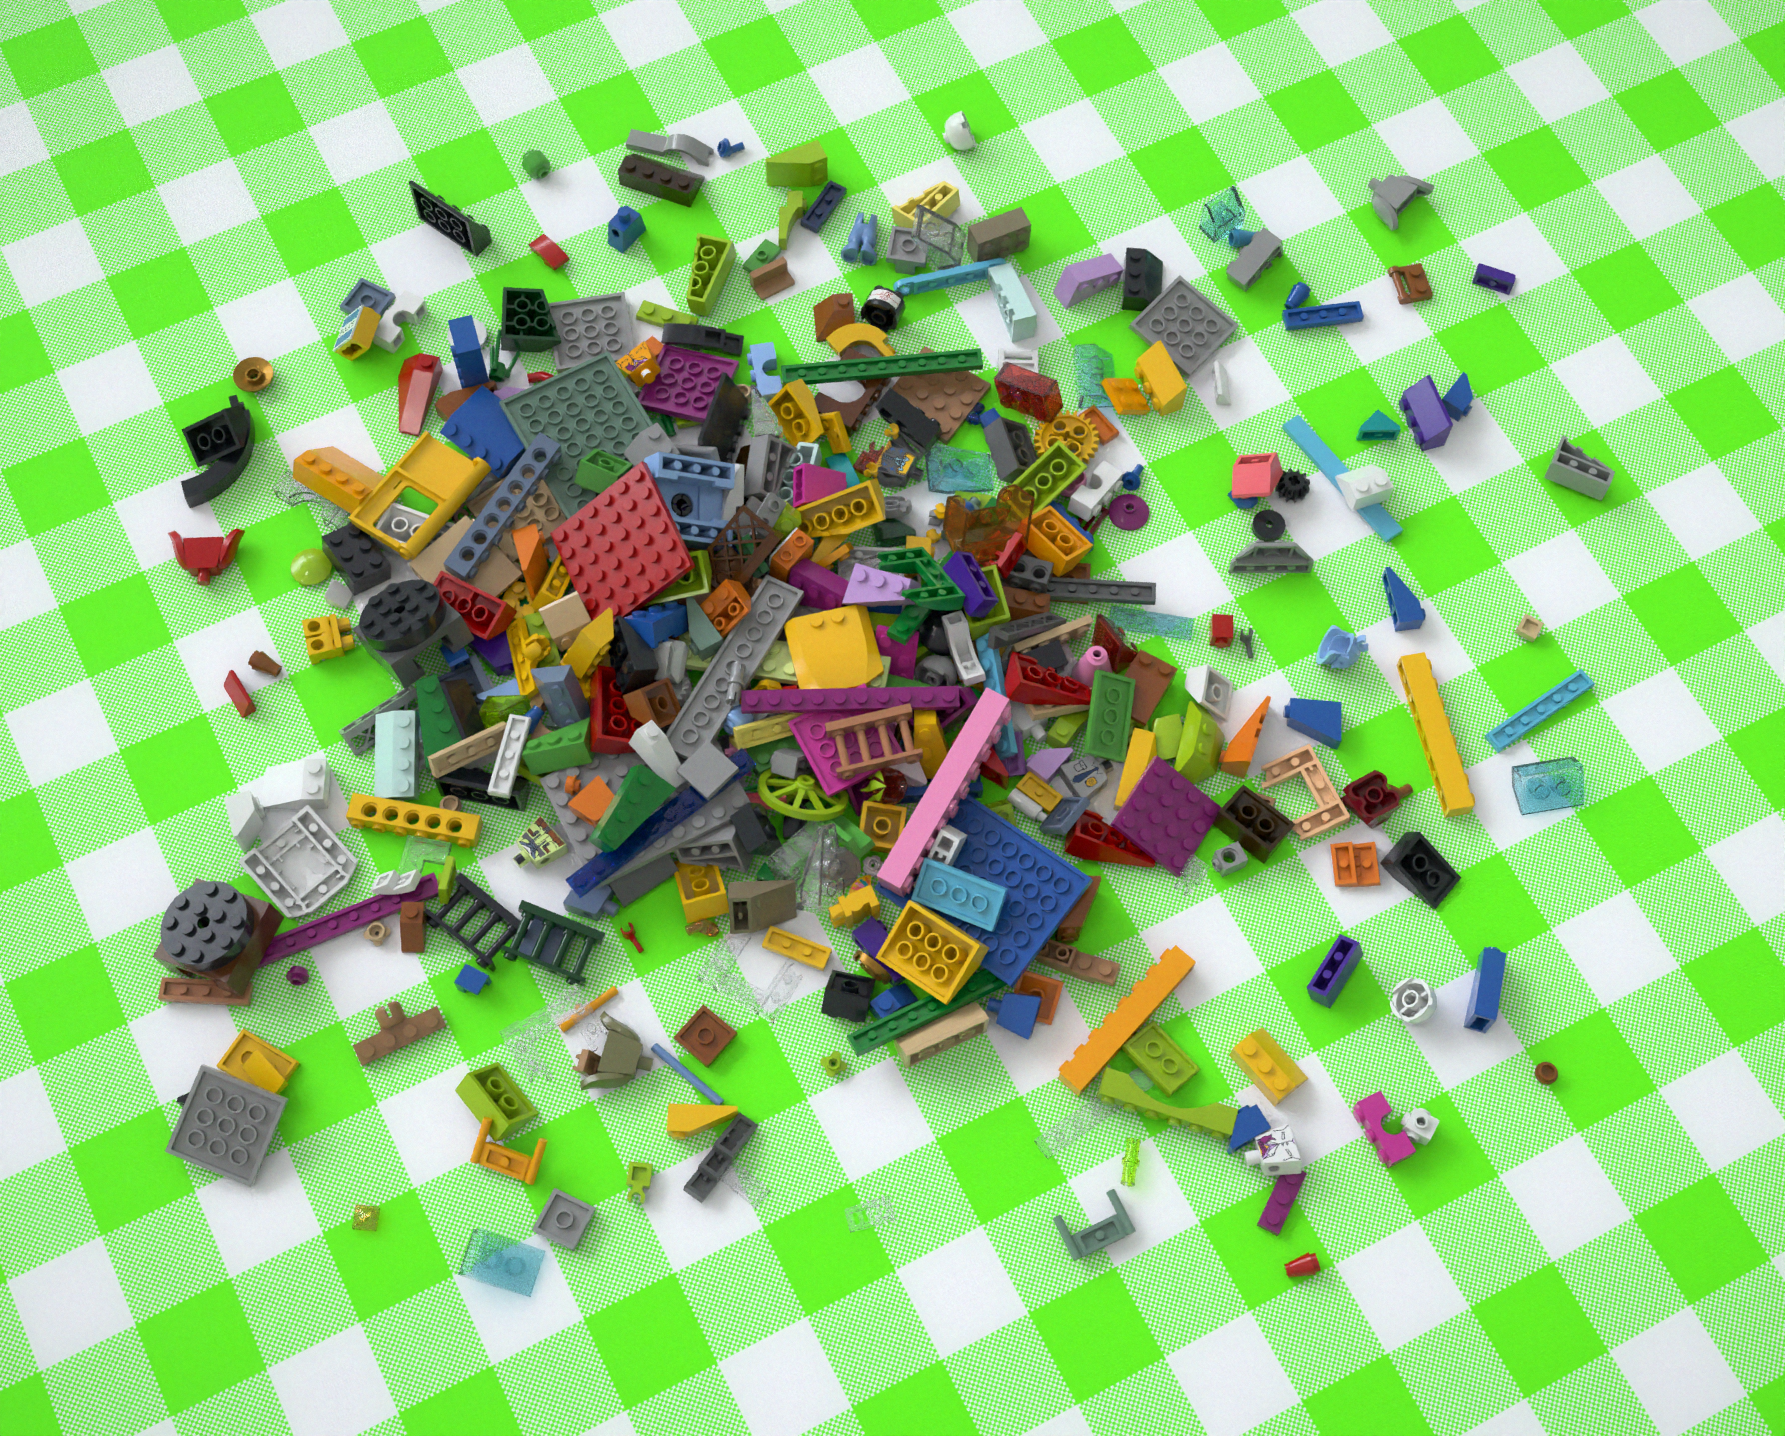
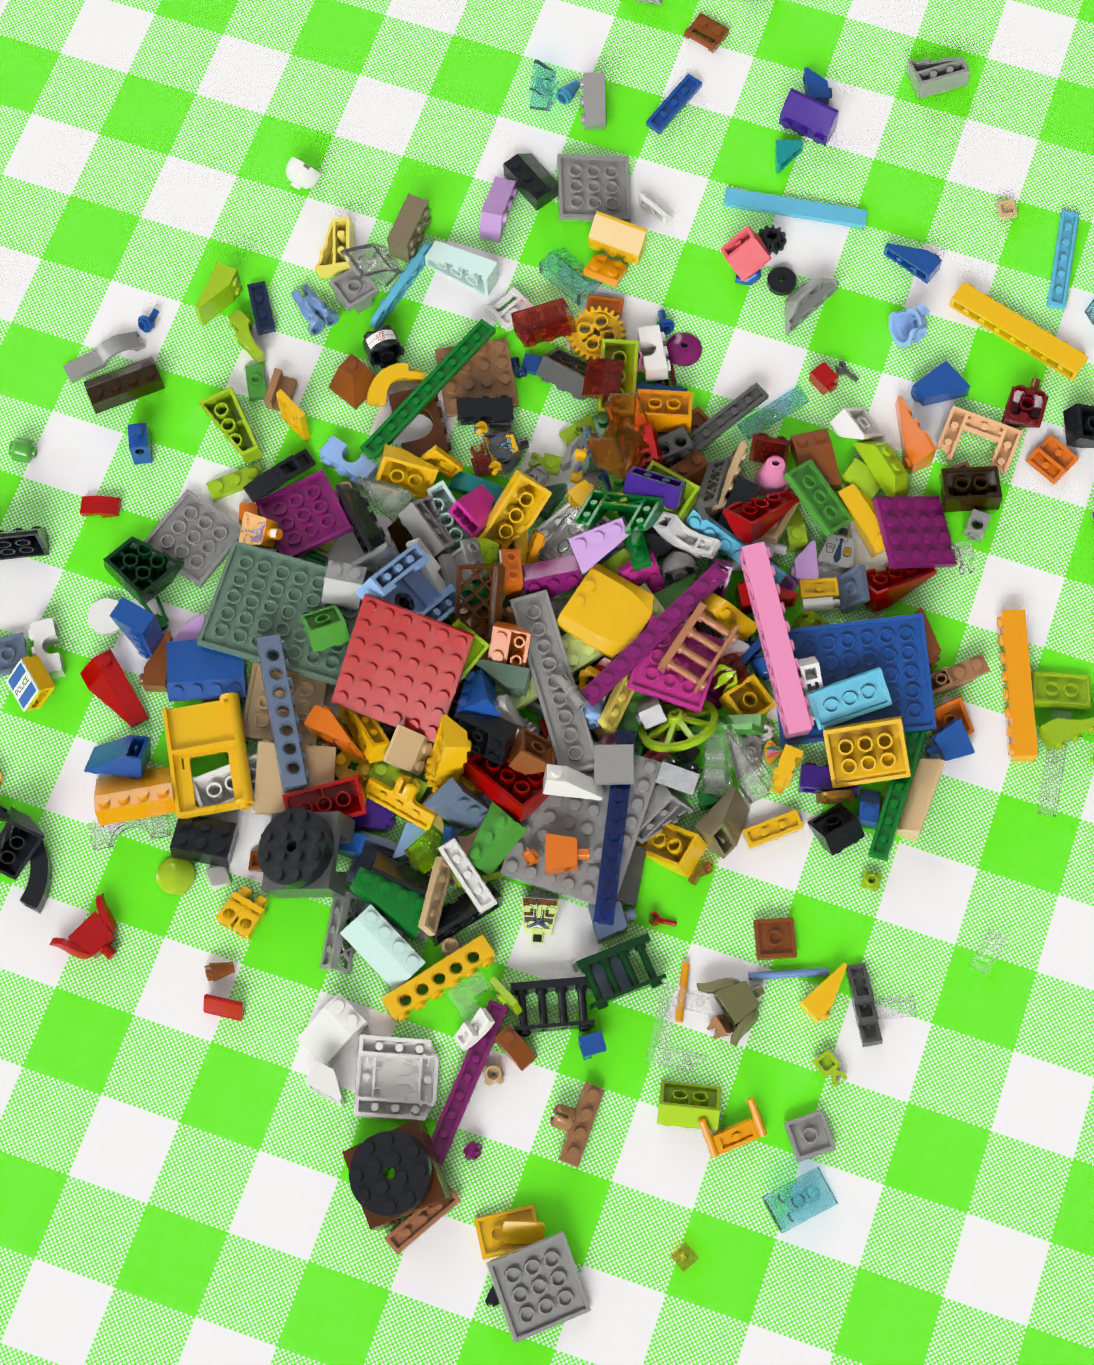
camera: 40 degrees left, 5 degrees up
(364, 444) = (121, 757): none -> blue slope
(538, 376) = (192, 599): red arm -> none
(632, 804) = (591, 835): green wedge -> none
(755, 300) = (293, 415): none -> yellow tile
(766, 1003) = (743, 894): clear wedge -> none
(920, 506) = (549, 462): none -> lime plate
(958, 470) = (547, 418): clear light blue slope -> none
(1028, 471) = (602, 378): none -> clear red slope
(1297, 296) = (644, 104): blue cone -> none
(1365, 486) = (817, 200): white slope -> none

